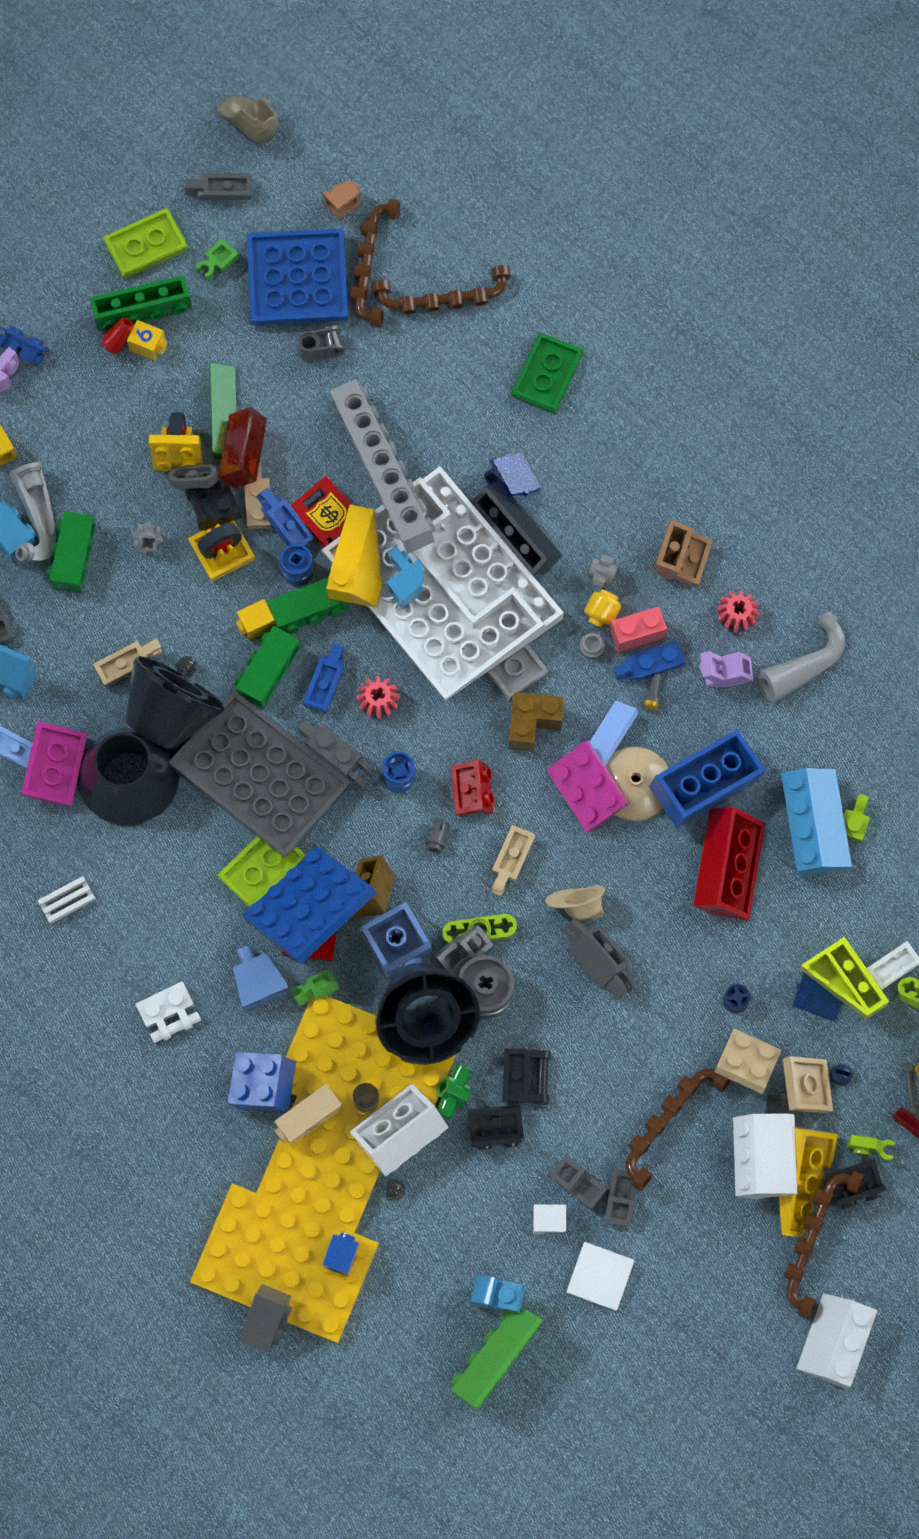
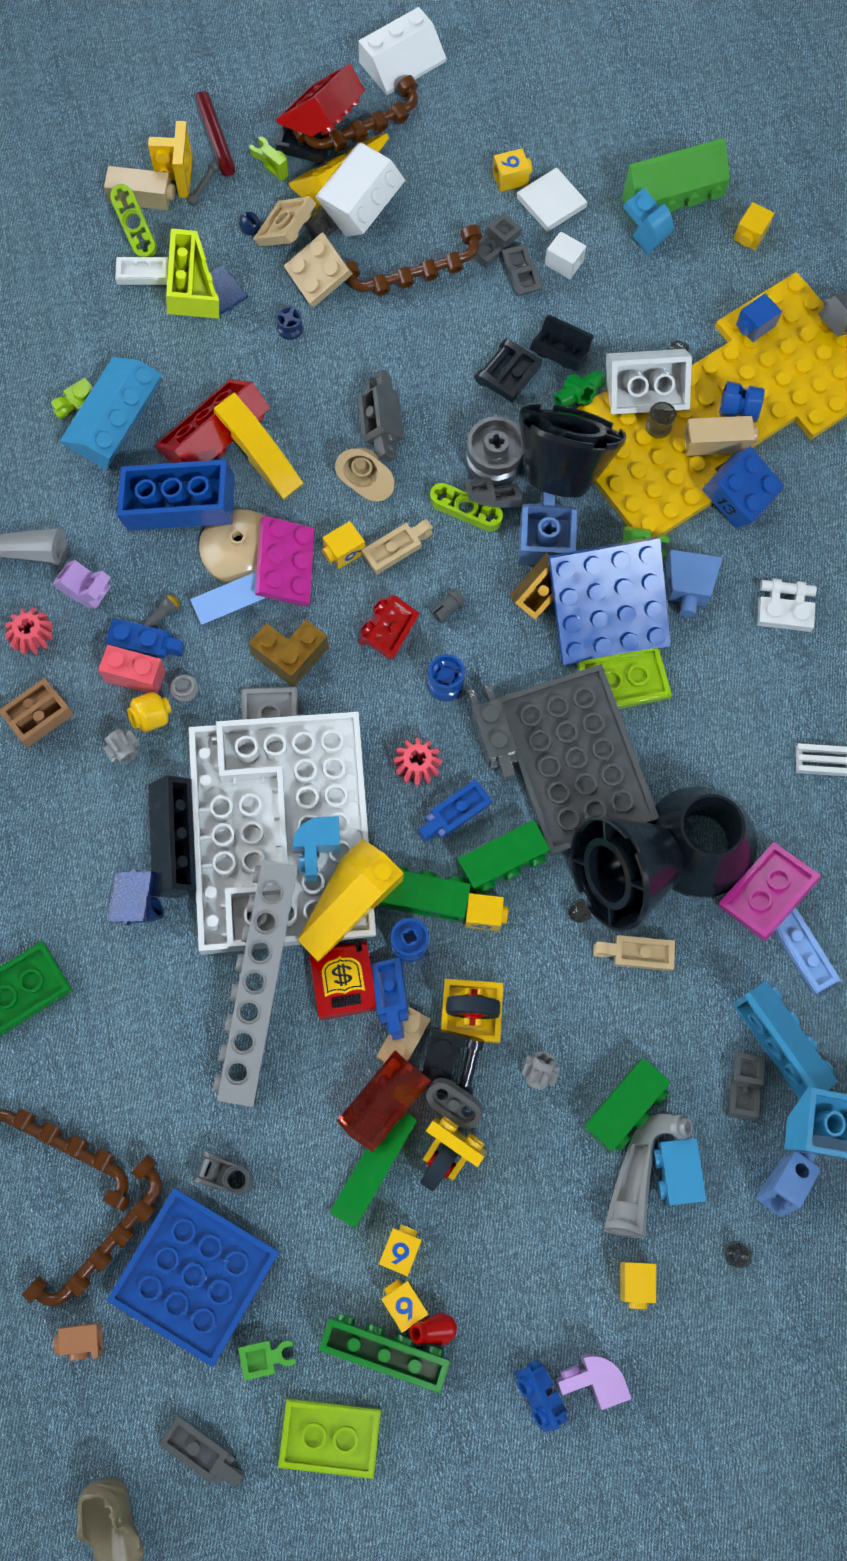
camera: 150 degrees left, 0 degrees up
(170, 370) = (400, 1250): none -> yellow brick
(299, 1161) = (741, 401): none -> blue wheel
(402, 1362) = (753, 226): none -> yellow brick
(552, 830) = (343, 545): none -> yellow brick
(653, 1278) = (511, 169): none -> yellow brick
(675, 861) = (258, 446): none -> yellow slope
(858, 1215) = (324, 103): none -> red slope

